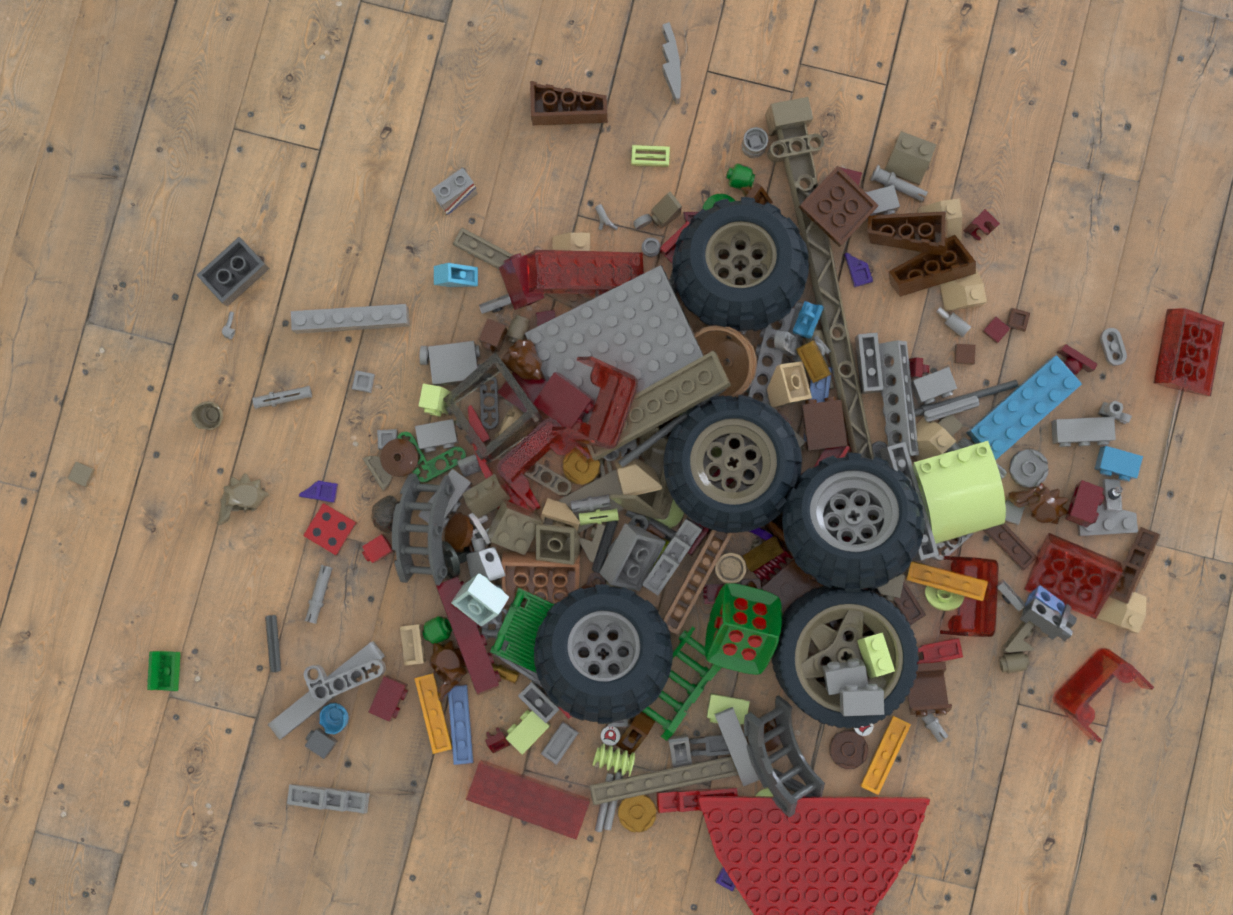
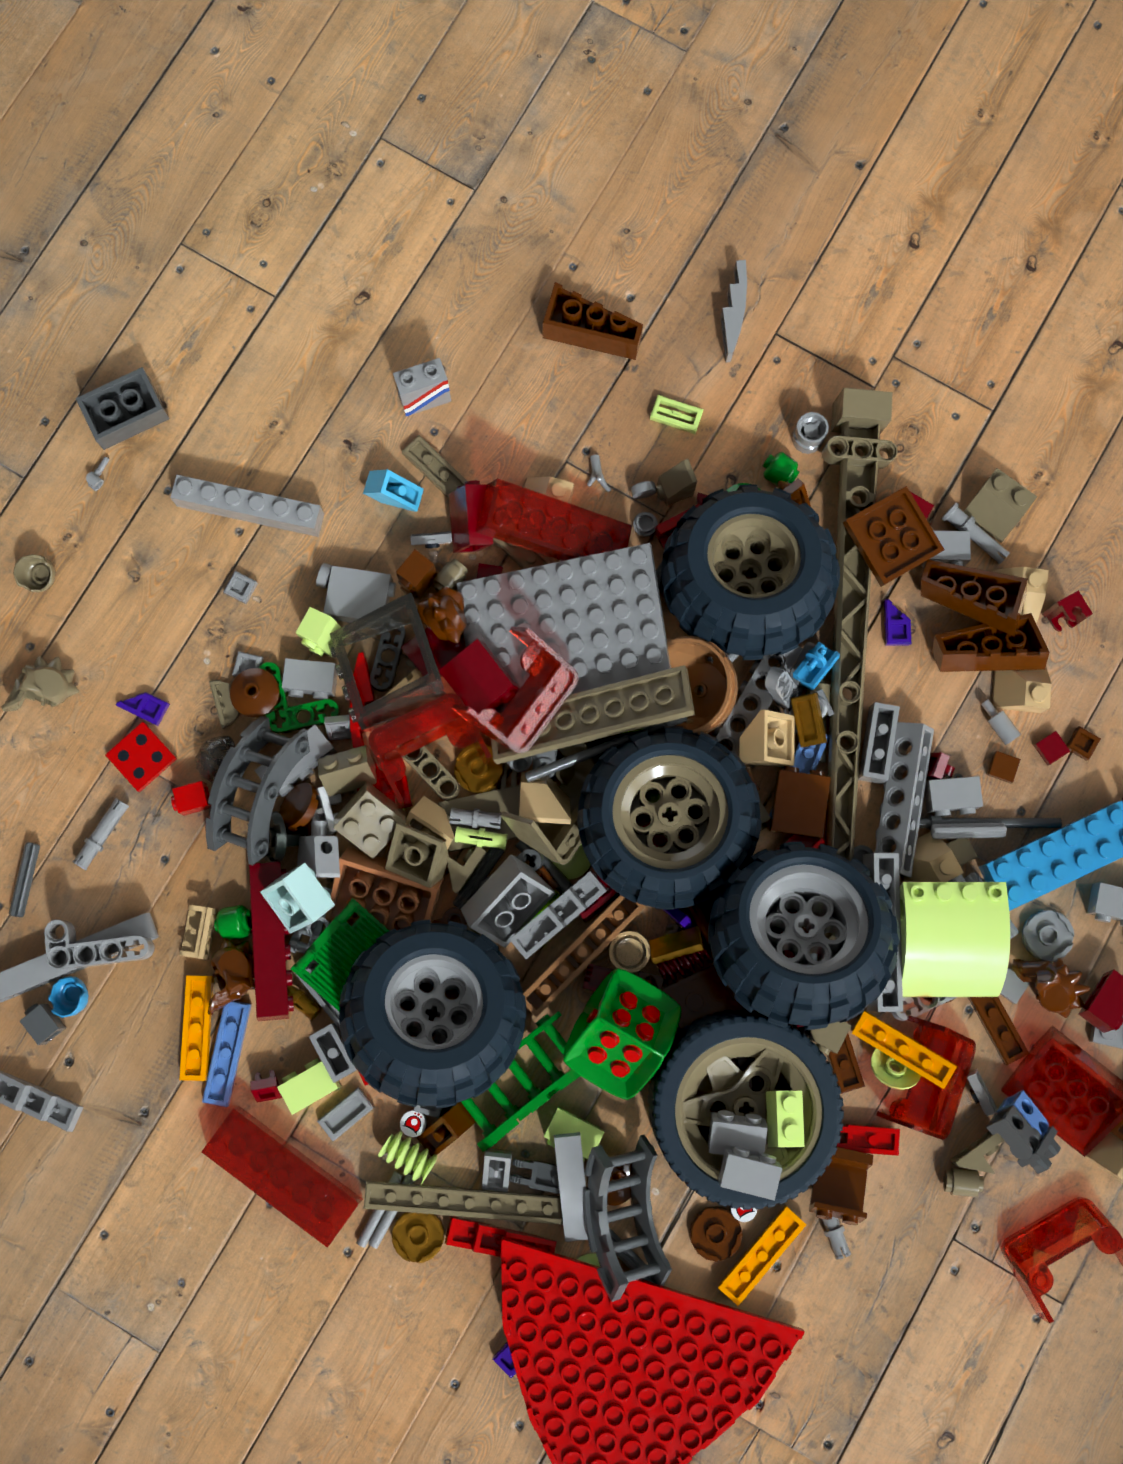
camera: 15 degrees right, 5 degrees down
(258, 402) = (104, 575): light grey pin -> none
(388, 698) = (145, 992): dark red brick -> none

